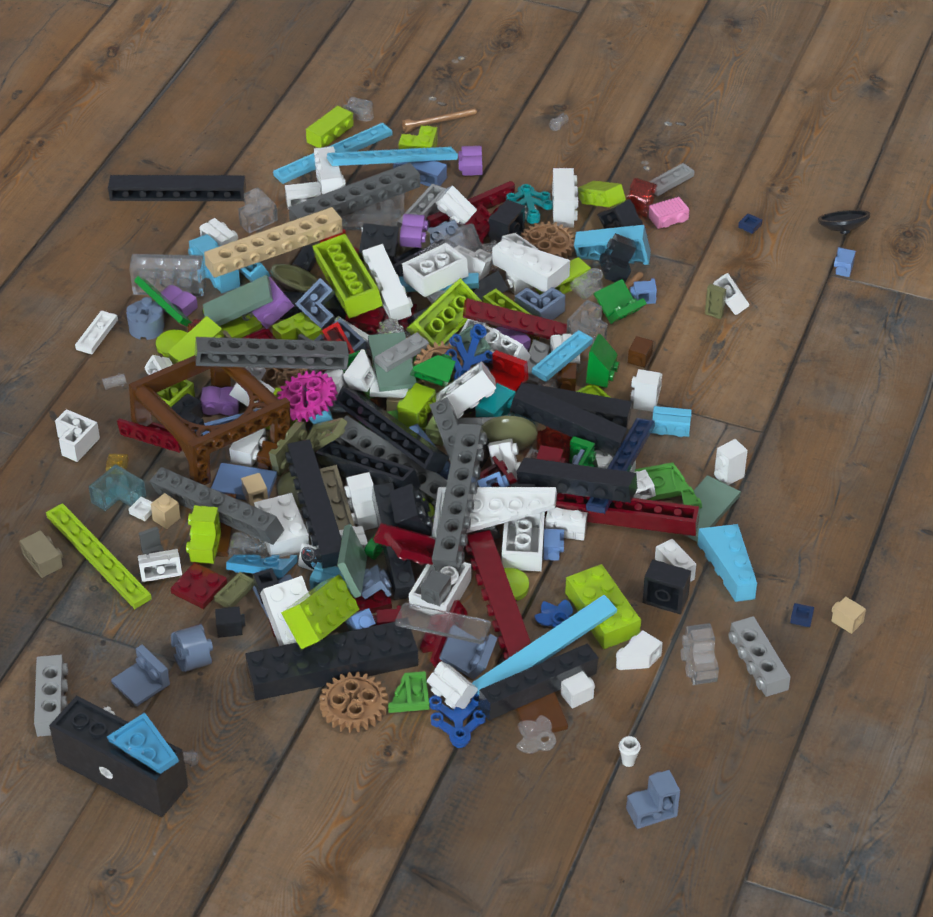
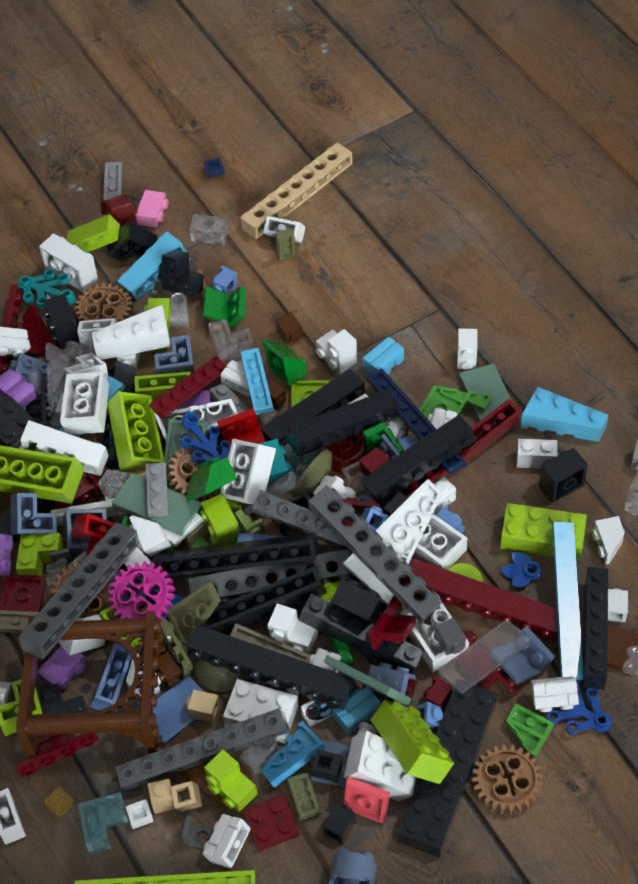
camera: 50 degrees left, 10 degrees up
(174, 522) = (186, 796): none -> tan brick
(257, 621) = (366, 800): none -> coral tile
(685, 254) = (209, 229): none -> clear brick
(787, 280) = (297, 189): none -> tan brick
(844, 220) = (271, 109): black dish -> none
(844, 262) = (313, 140): medium blue brick -> none

